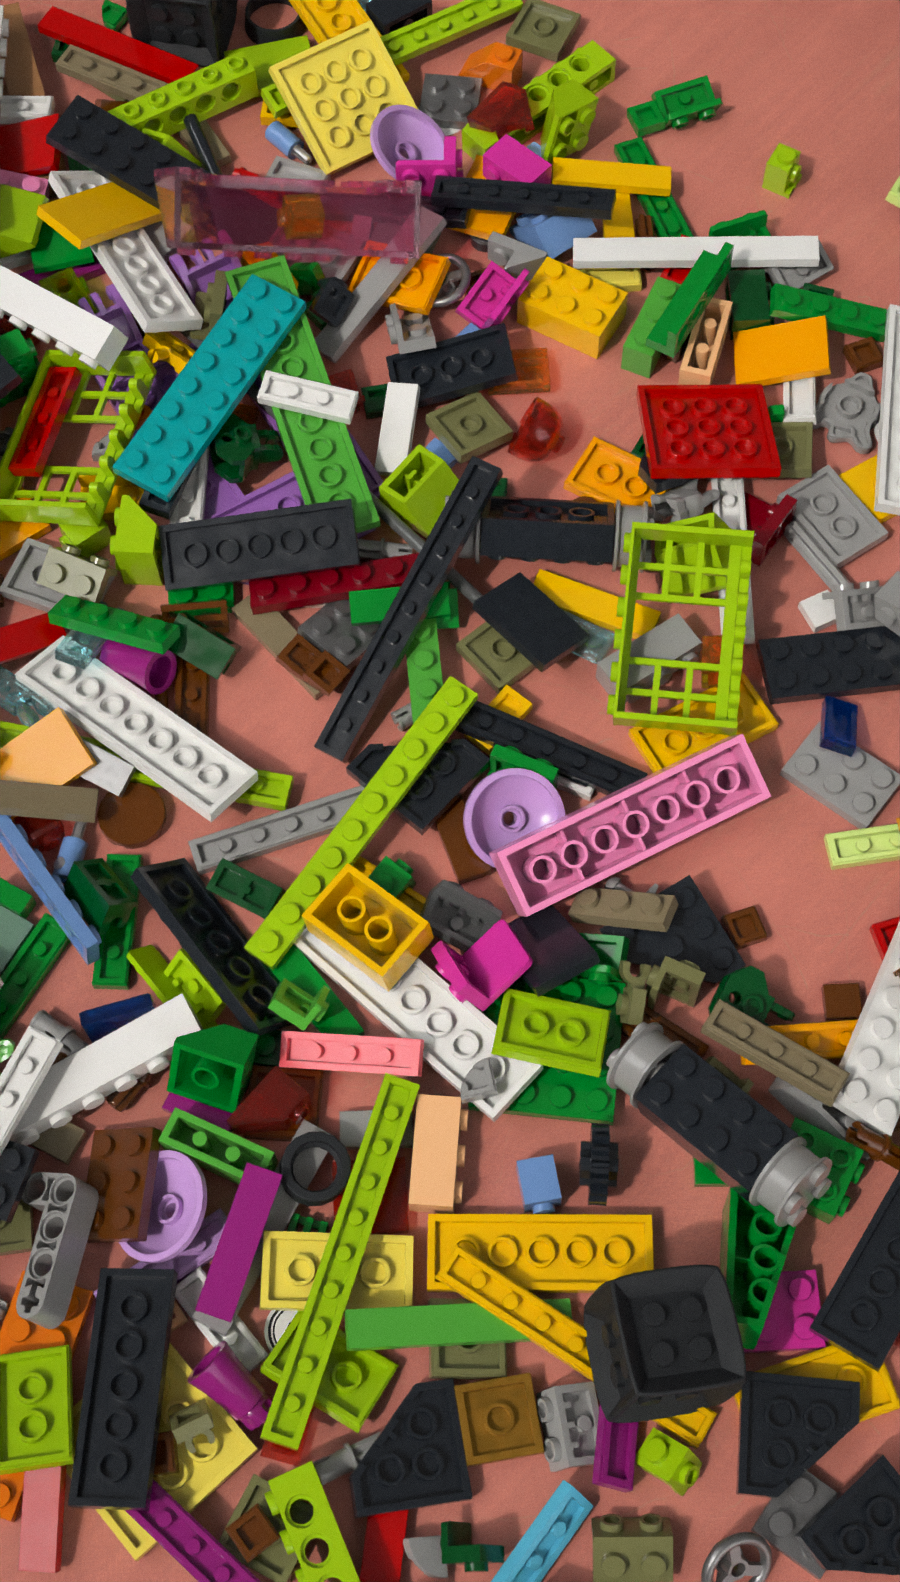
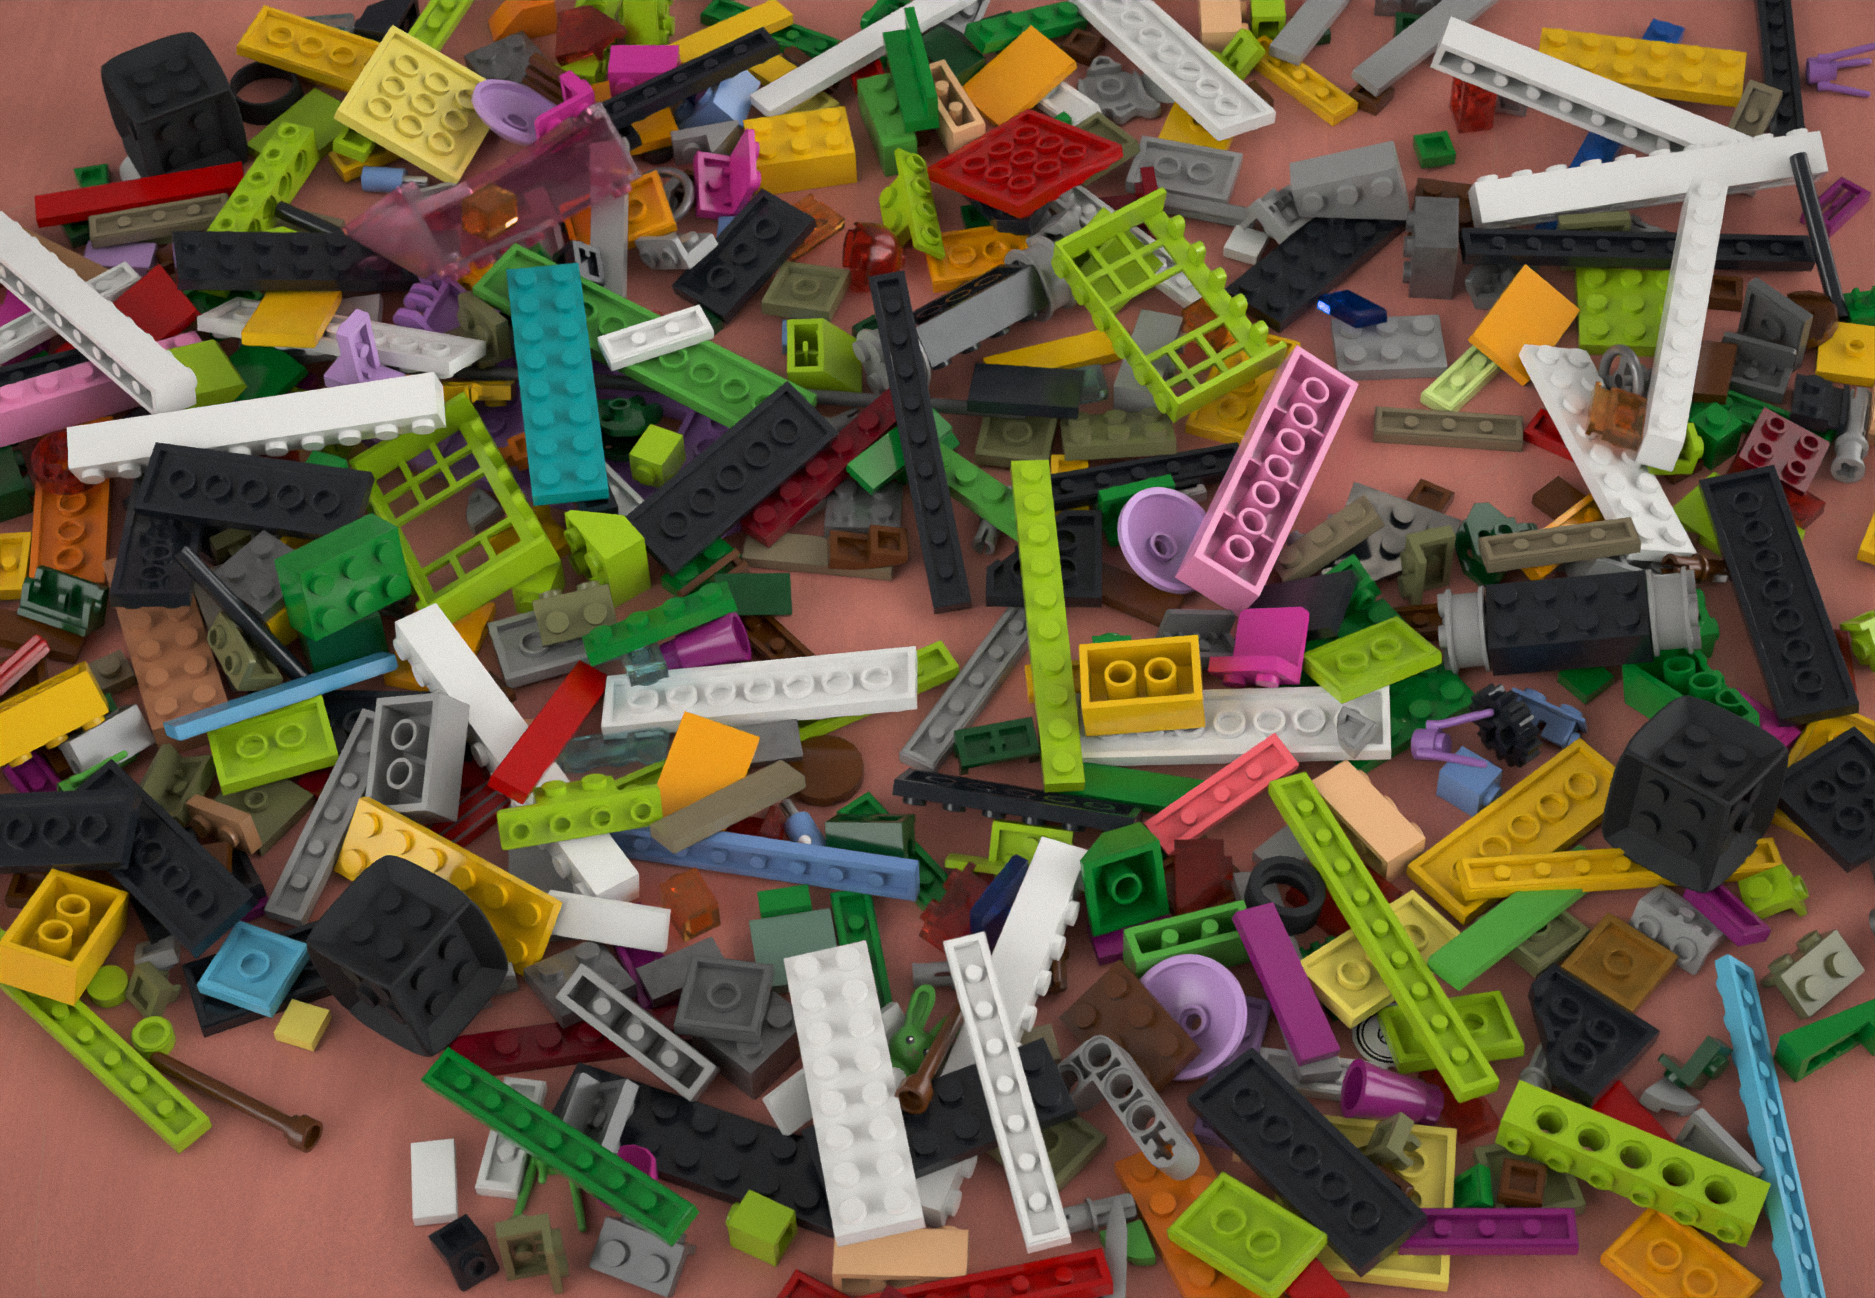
camera: 40 degrees left, 15 degrees down
(45, 421) = (407, 511): red plate -> none
(68, 87) = (137, 254): none -> lavender tile
(88, 994) = (951, 915): none -> clear red bracket
(97, 283) = (358, 355): none -> lavender bracket
(219, 1506) = (1473, 1188): none -> green tile
(237, 490) = (657, 456): none -> lime brick
(297, 1005) = (1135, 793): bright green bracket -> none
(397, 426) = (743, 327): white tile -> none
(452, 125) = (541, 82): none -> reddish brown tile
(539, 1131) = (1435, 745): none -> medium lavender plant
(565, 704) = (1117, 435): none -> olive plate
(604, 409) = (909, 206): none -> lime bracket
(632, 1002) = (1407, 594): olive plate -> none
(644, 1162) = (1560, 721): none -> medium blue hinge
(819, 878) = (1448, 429): none -> dark tan tile

